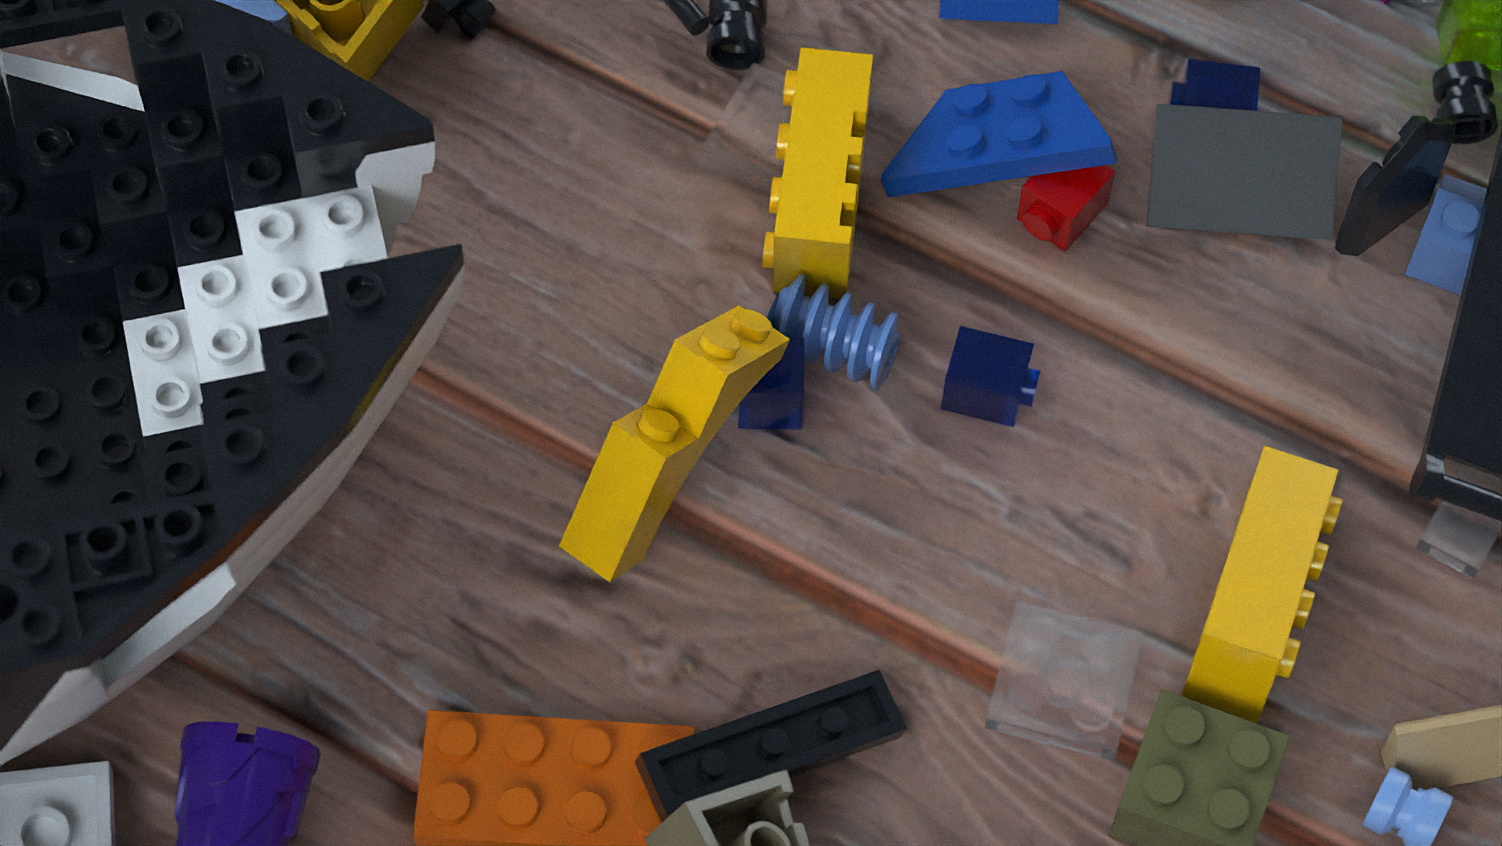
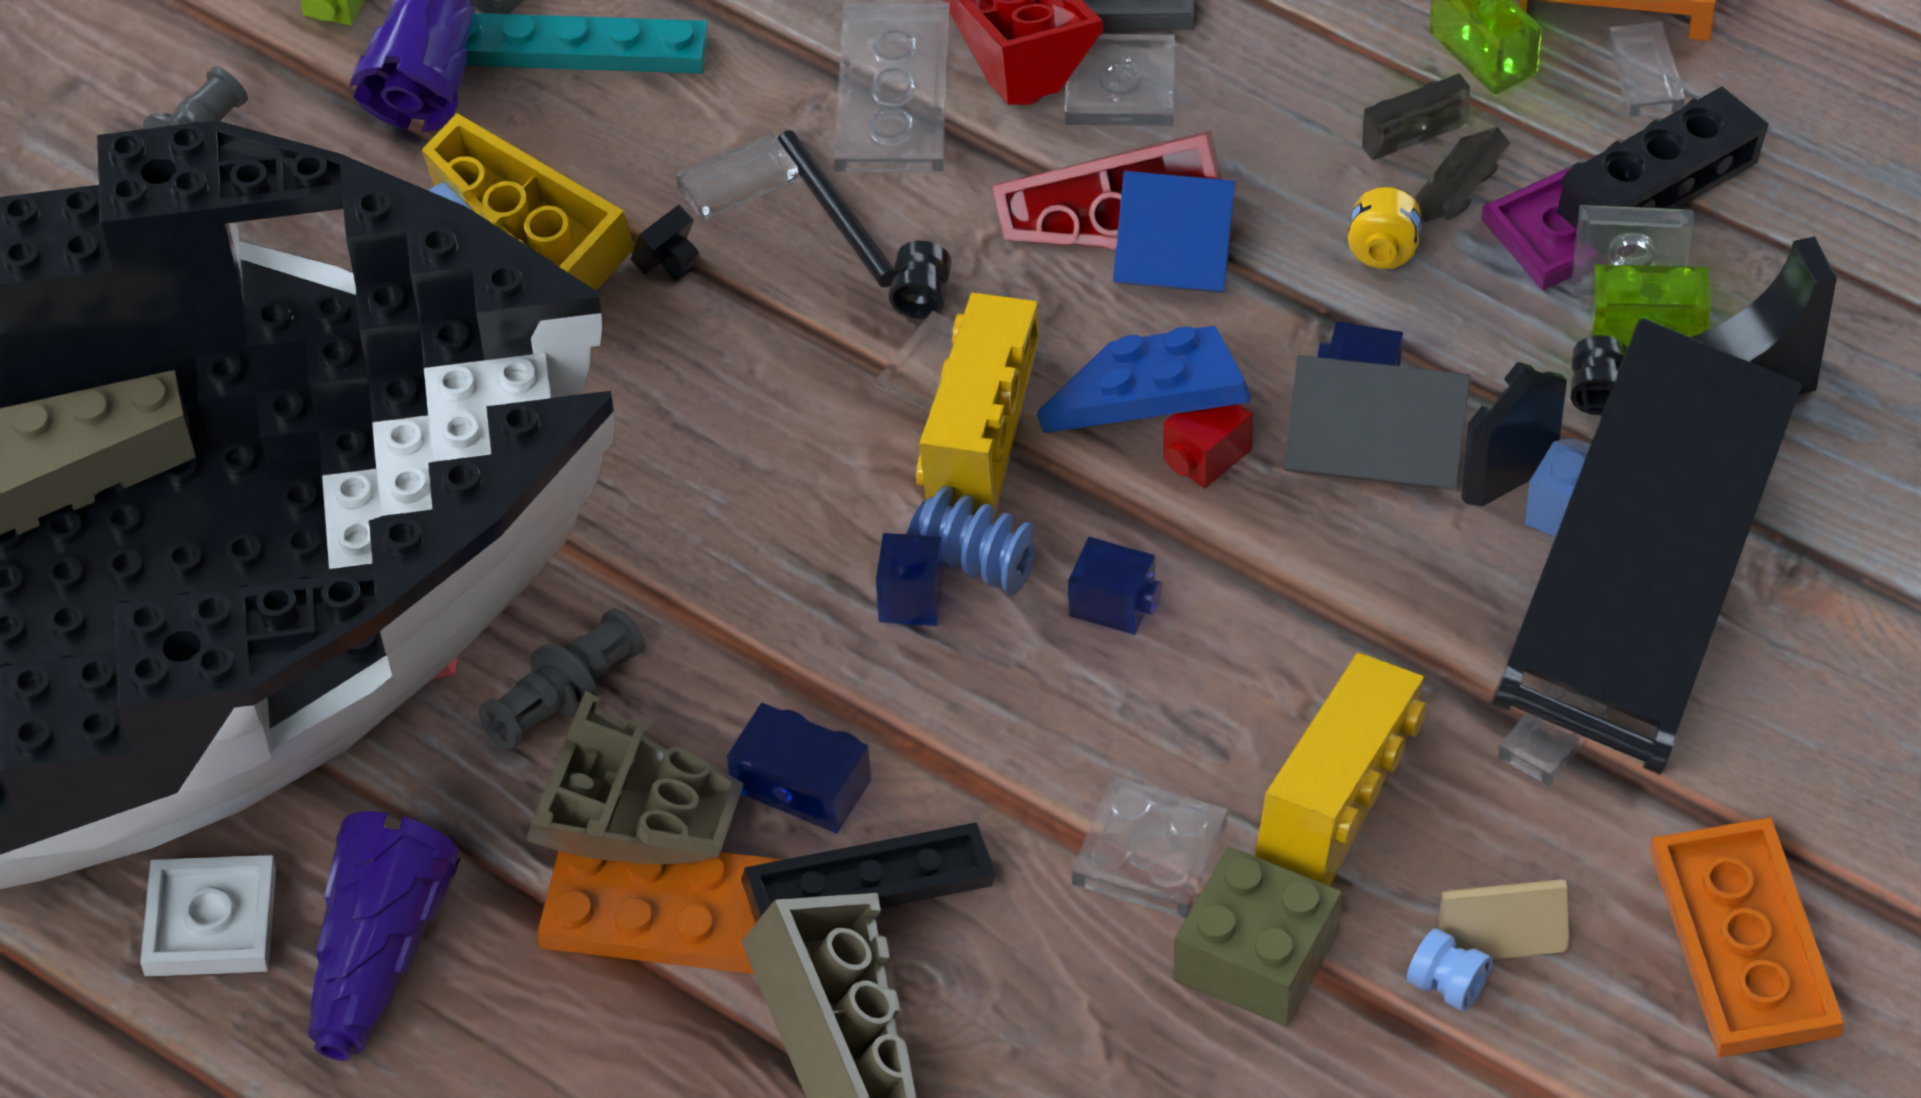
camera: 10 degrees right, 10 degrees down
(405, 524) = (561, 678): none -> dark grey piece
(501, 667) = (630, 797): none -> dark tan wedge
(661, 441) = (791, 614): yellow arch -> none
(678, 613) = (800, 766): none -> clear blue brick

